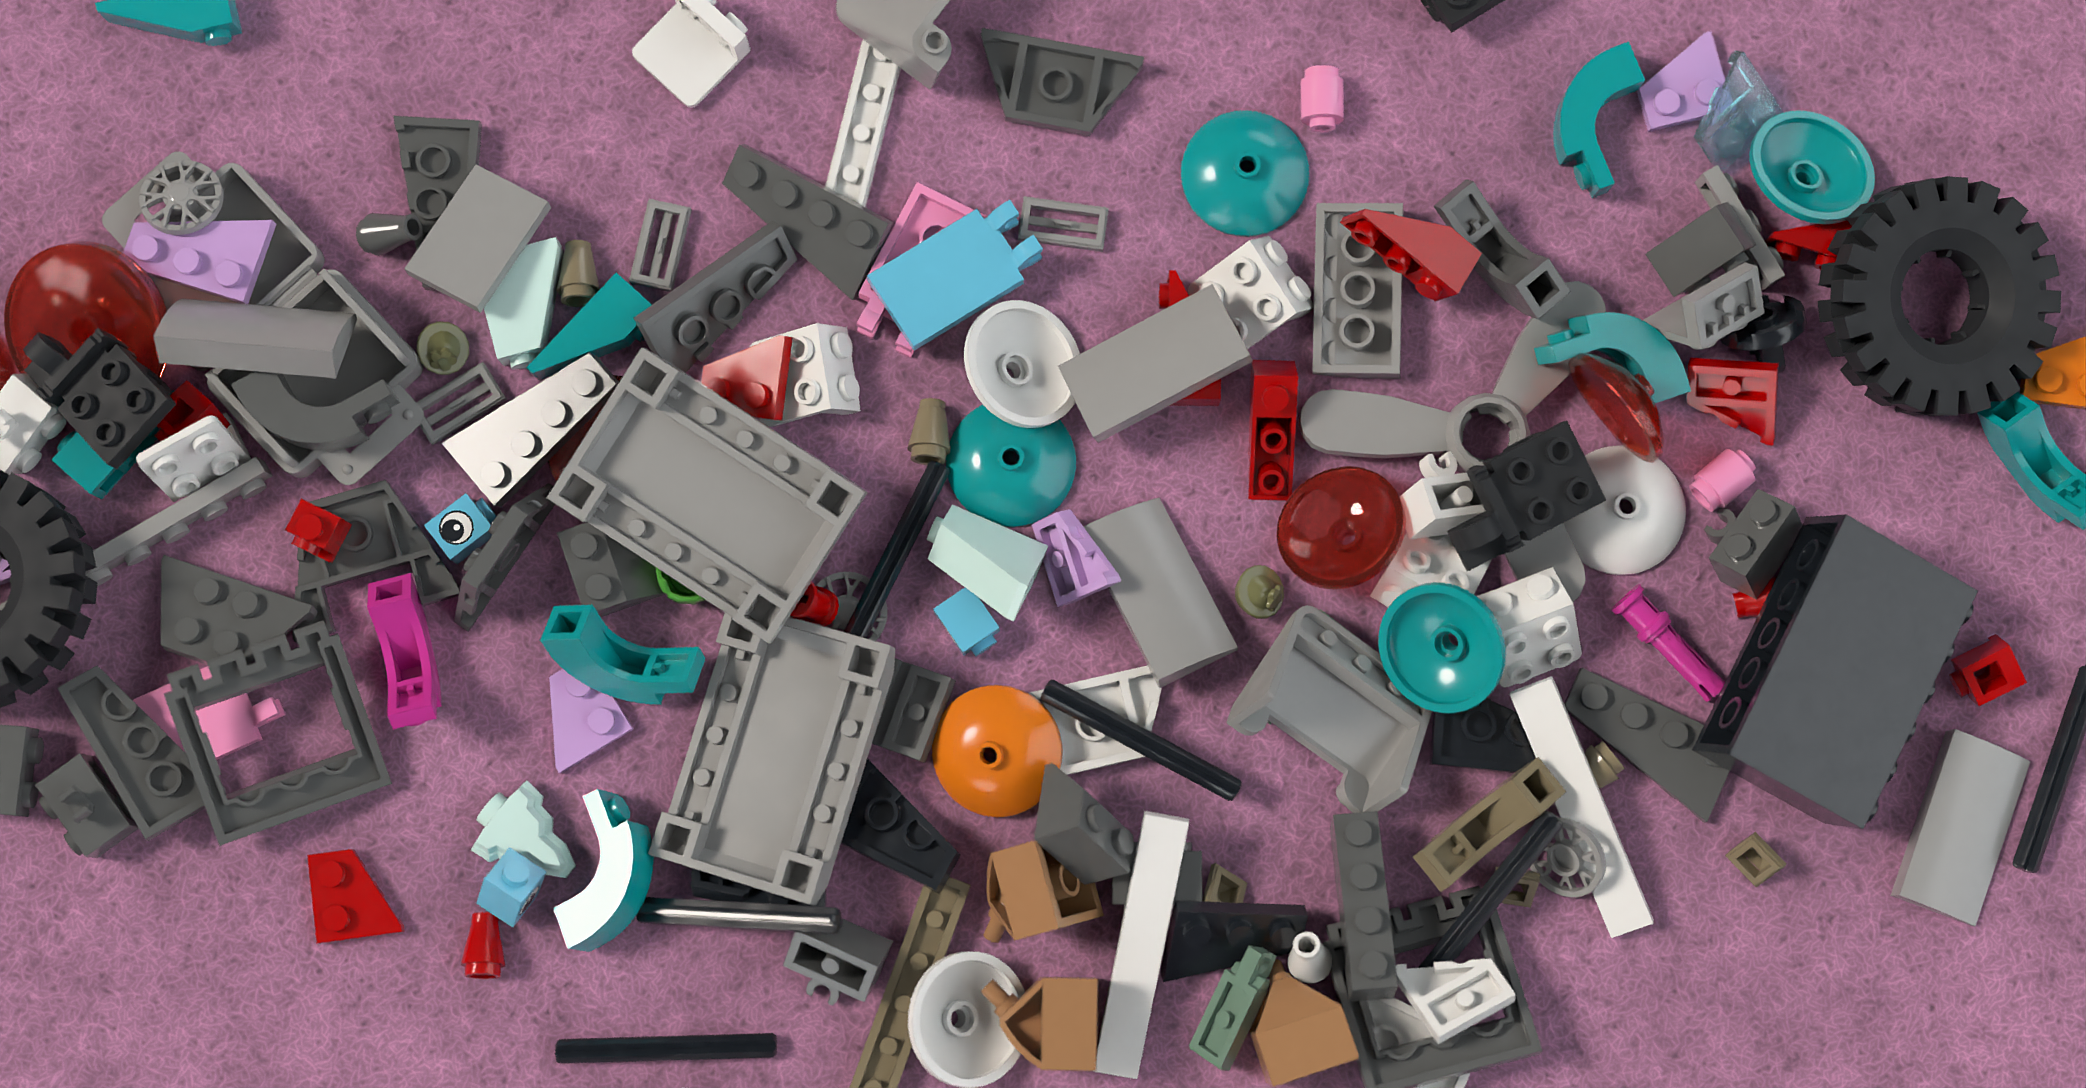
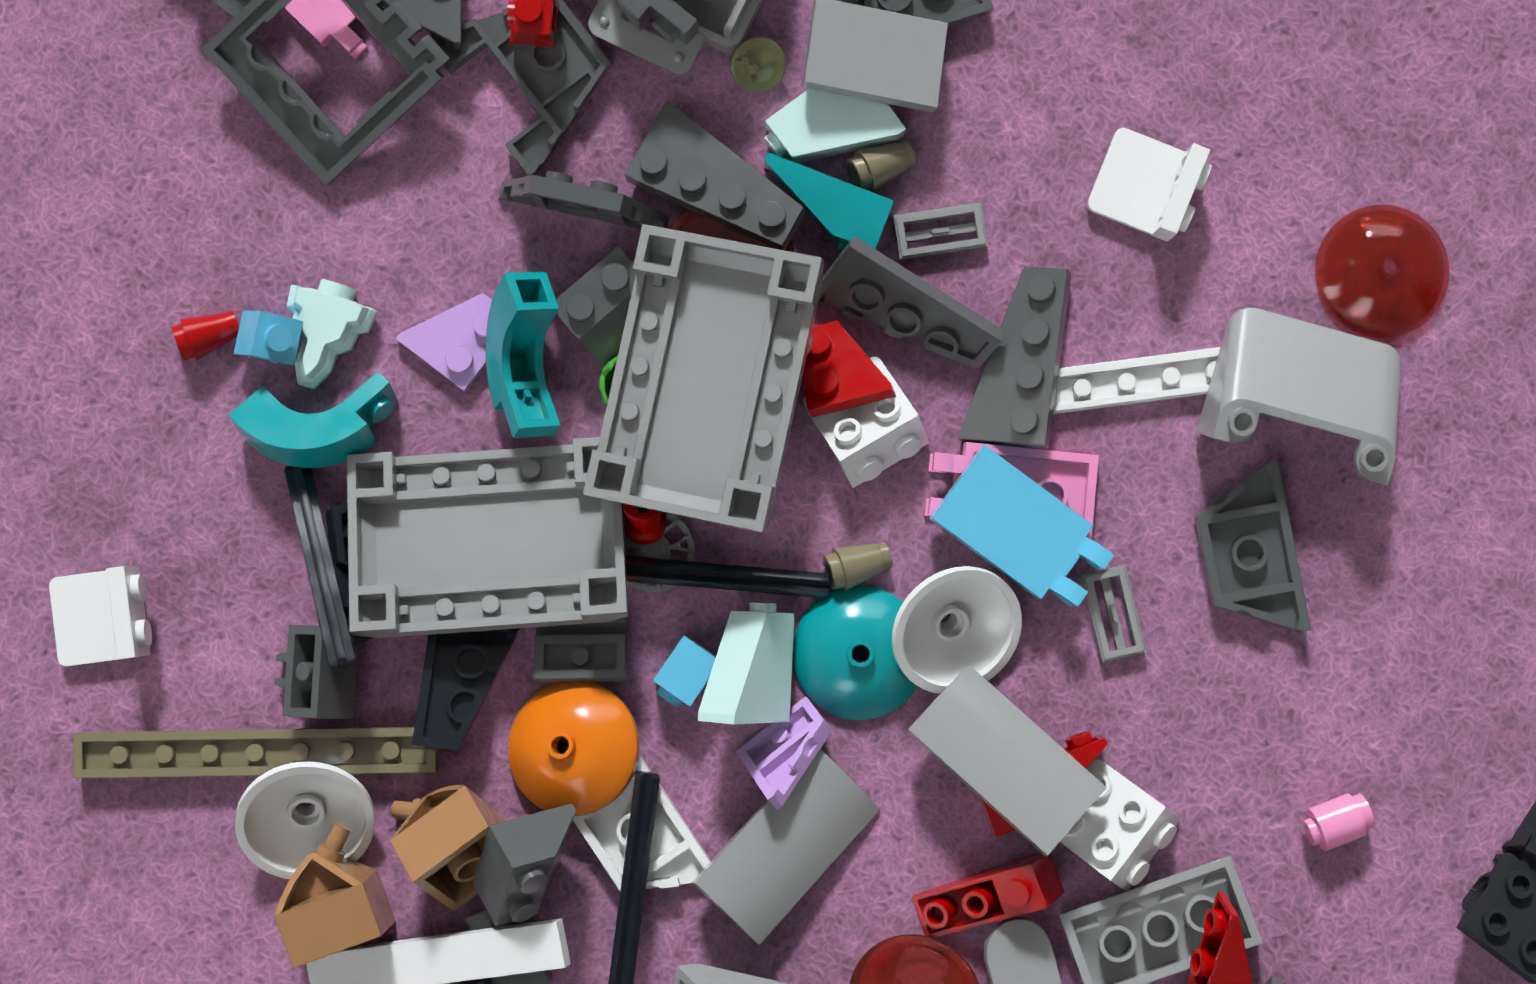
camera: 75 degrees right, 5 degrees up
(347, 899) = (203, 188): red wing -> none
(406, 649) = (451, 151): dark pink arch -> none
(462, 527) = (592, 153): medium azure brick -> none
(468, 416) = (741, 122): light grey tile -> none
(666, 1048) = (177, 542): black axle -> none
(1239, 200) = (1203, 768): teal dish -> none
(1259, 592) = (823, 943): olive hat -> none

